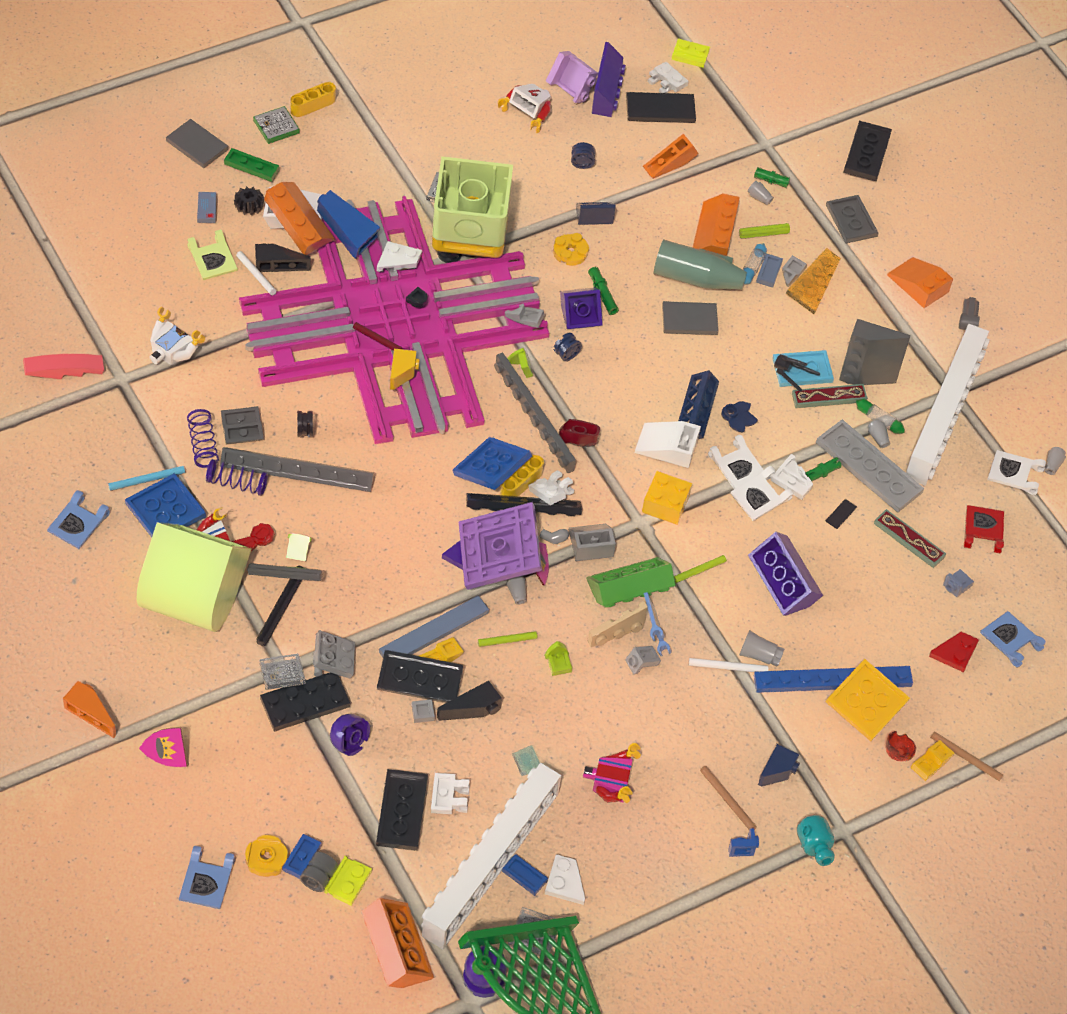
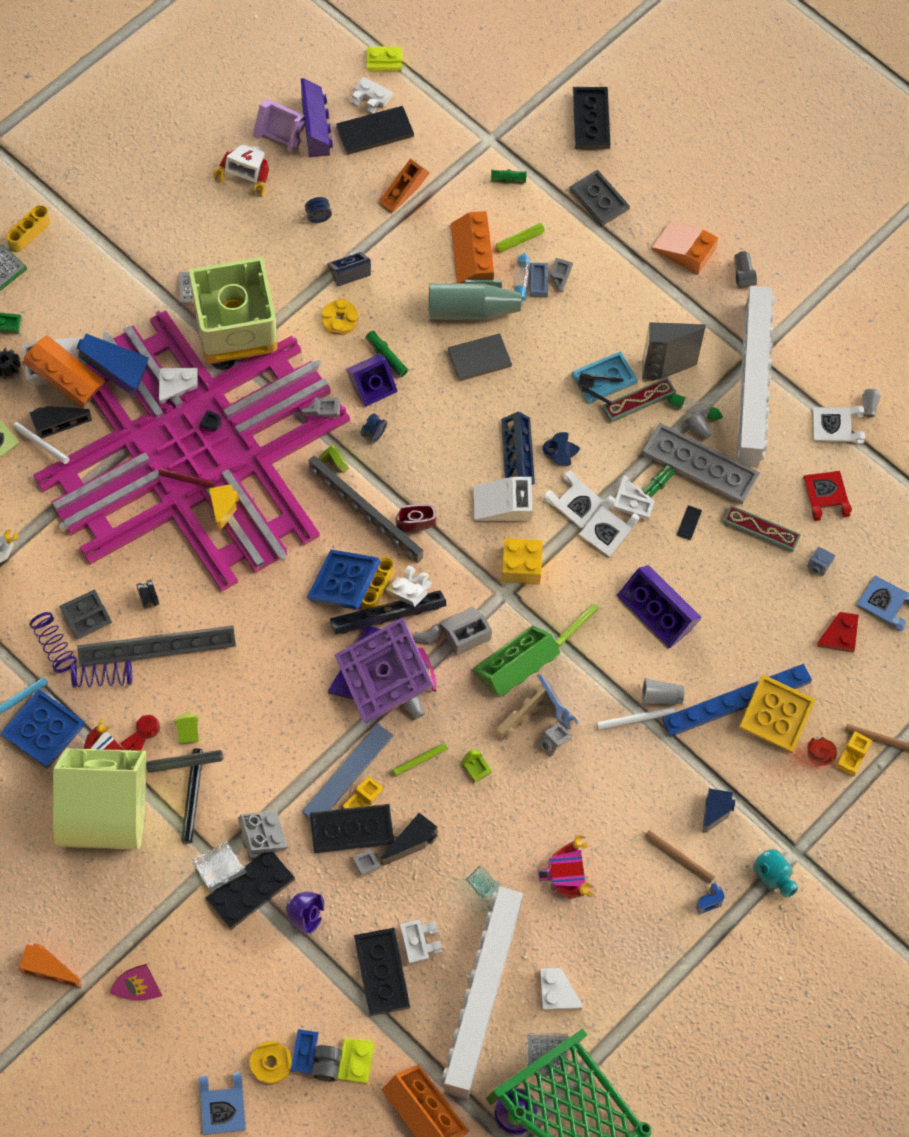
camera: 15 degrees left, 10 degrees up
(525, 874) = (518, 998): blue tile -> none
(759, 192) = (503, 197): light grey cone -> none
(813, 282) = (584, 284): clear yellow wing -> none

